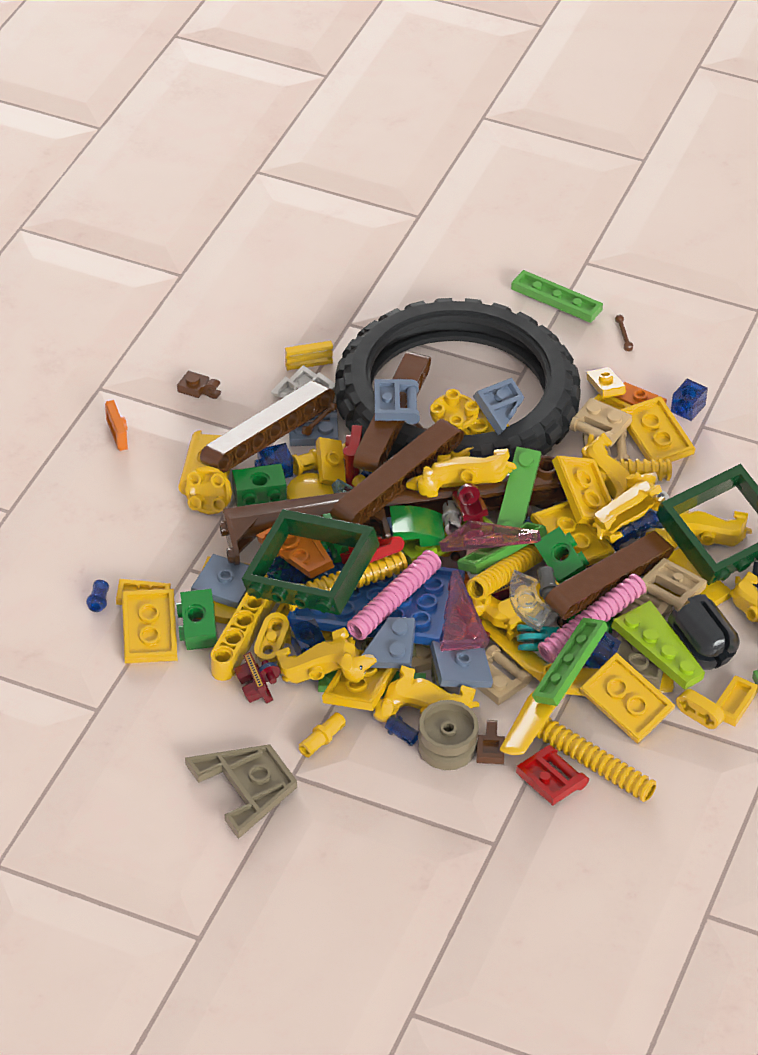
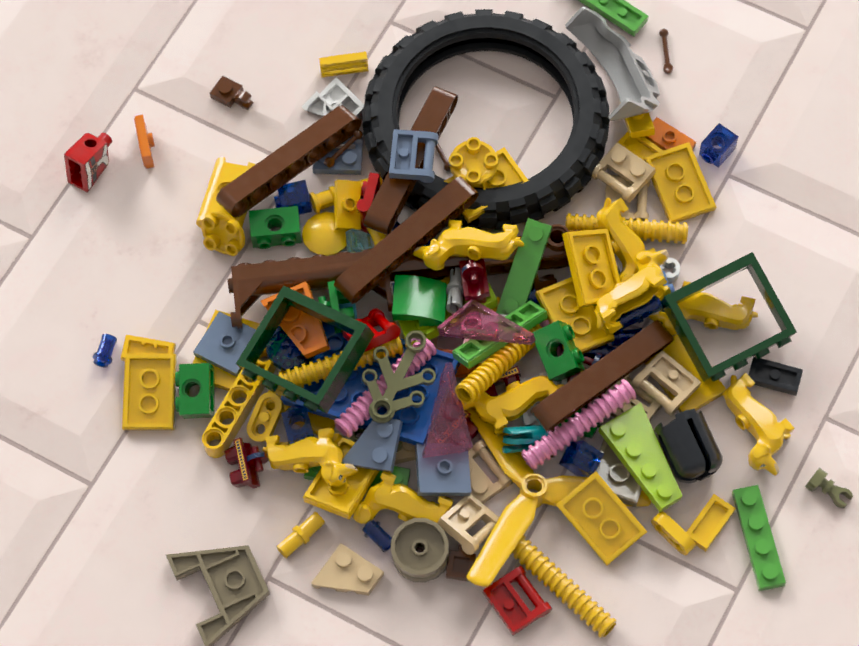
camera: 10 degrees right, 20 degrees up
(60, 441) = (87, 160): none -> red torso
(376, 764) = (348, 572): none -> tan wing
(407, 583) = (396, 381): none -> olive plant
(489, 704) = (463, 518): none -> tan plate
(499, 403) = (520, 157): sand blue wing -> none
(526, 601) = (514, 403): clear tile -> none
(546, 580) = (537, 385): dark grey pin -> none
(570, 661) = (548, 481): bright green plate -> none
(577, 338) = (627, 70): none -> light grey windscreen

